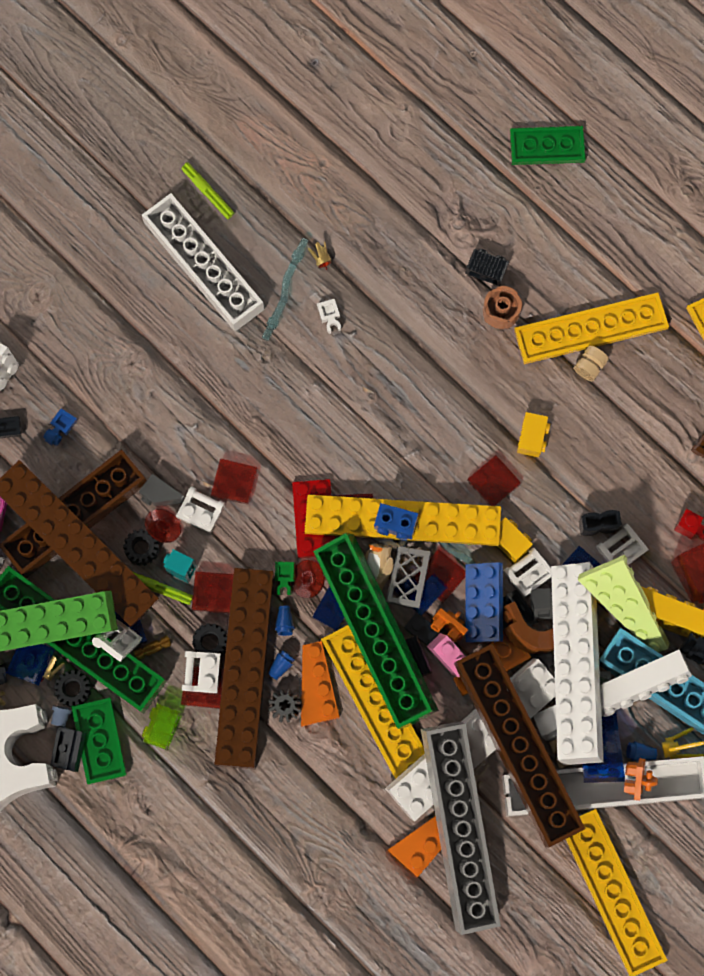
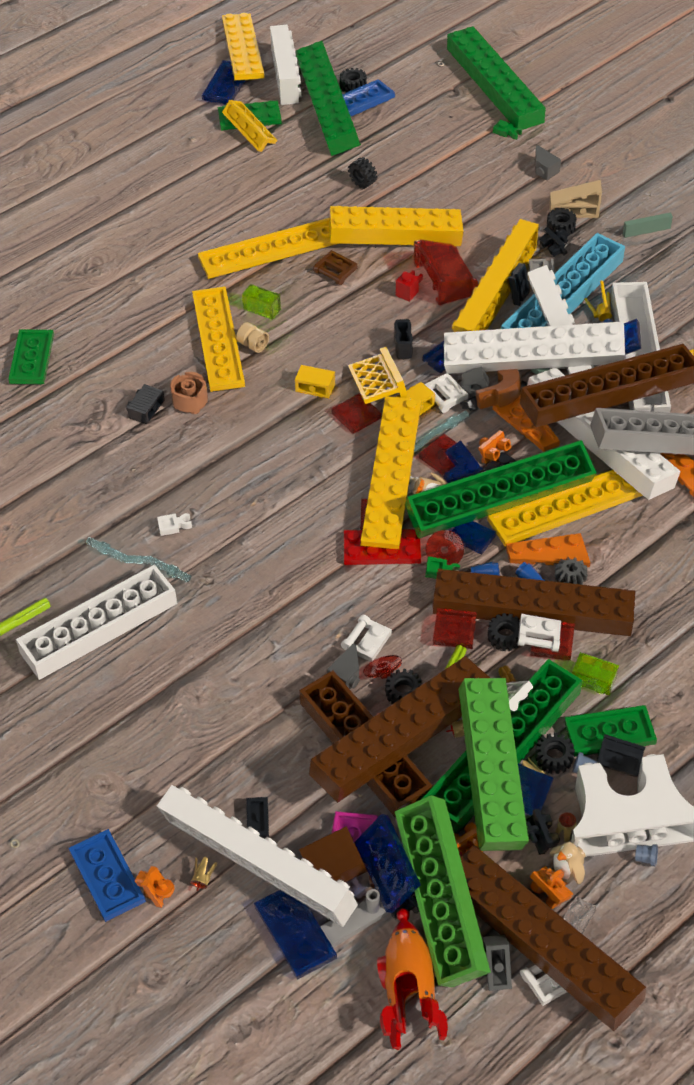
camera: 85 degrees left, 25 degrees down
(62, 423) = (260, 757): blue plate -> none
(179, 565) = (428, 647): teal brick -> none
(234, 481) = (339, 607): clear red plate -> none
(324, 258) = (112, 527): pearl gold piece -> none
(396, 522) = (397, 464): blue brick -> none
(420, 587) = (424, 466): light grey window -> none
(446, 652) = (523, 444): bright pink brick -> none
(484, 602) = (473, 417): blue plate -> none
(546, 511) = (389, 372): none -> yellow fence
(625, 599) = (479, 308): yellowish green wing -> none
(631, 549) = (430, 328): white plate -> none
(636, 787) = (631, 314): orange hips -> none
(648, 367) = (261, 301): none -> clear neon green brick

